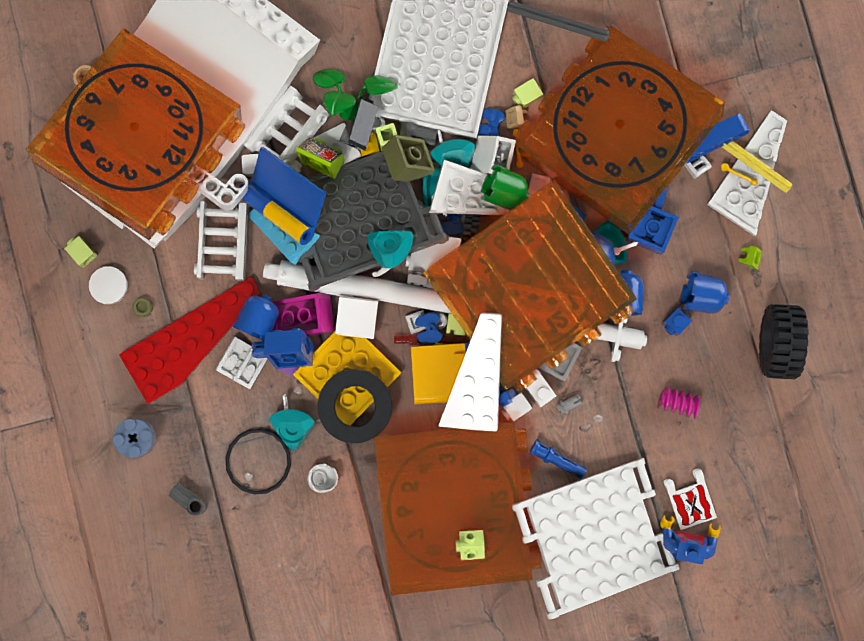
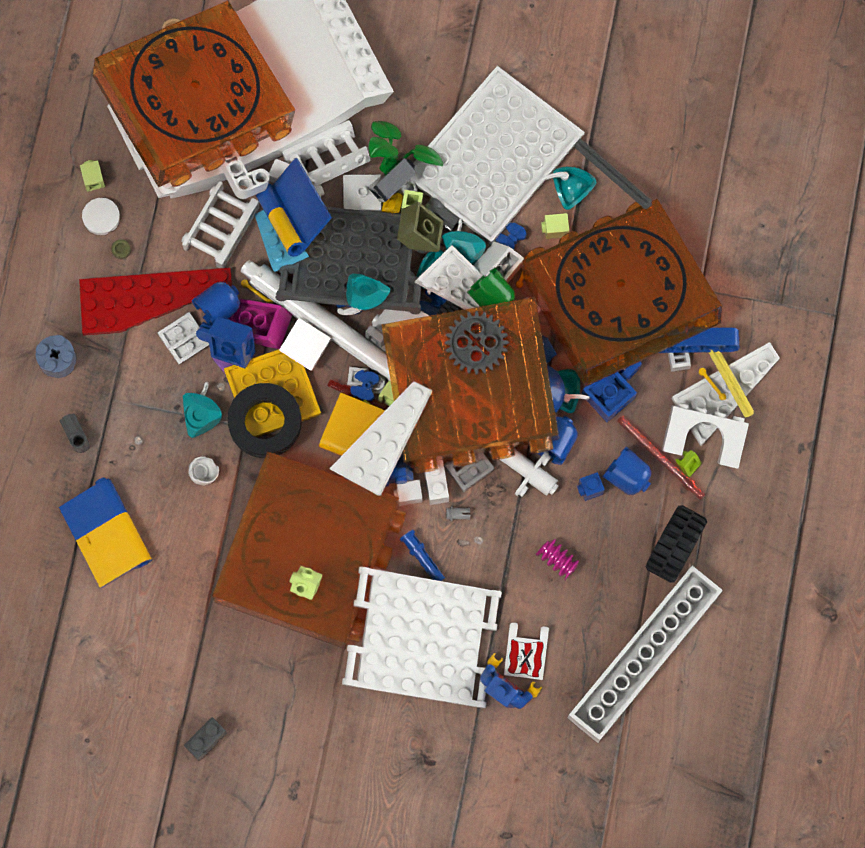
camera: 25 degrees right, 10 degrees down
(259, 491) = (163, 458): black piece -> none
(262, 577) = (105, 532): none -> door
(271, 284) = (244, 283): none -> yellow hinge
(320, 156) = (344, 192): lime slope -> none
(514, 117) = (535, 239): tan tile -> none
(516, 267) = (489, 330): none -> dark grey gear
(523, 48) = (571, 185): none -> teal hat
(730, 223) = (683, 419): none -> white arch
(759, 275) = (688, 483): none -> clear red bar
(798, 454) = (644, 654): none -> white brick

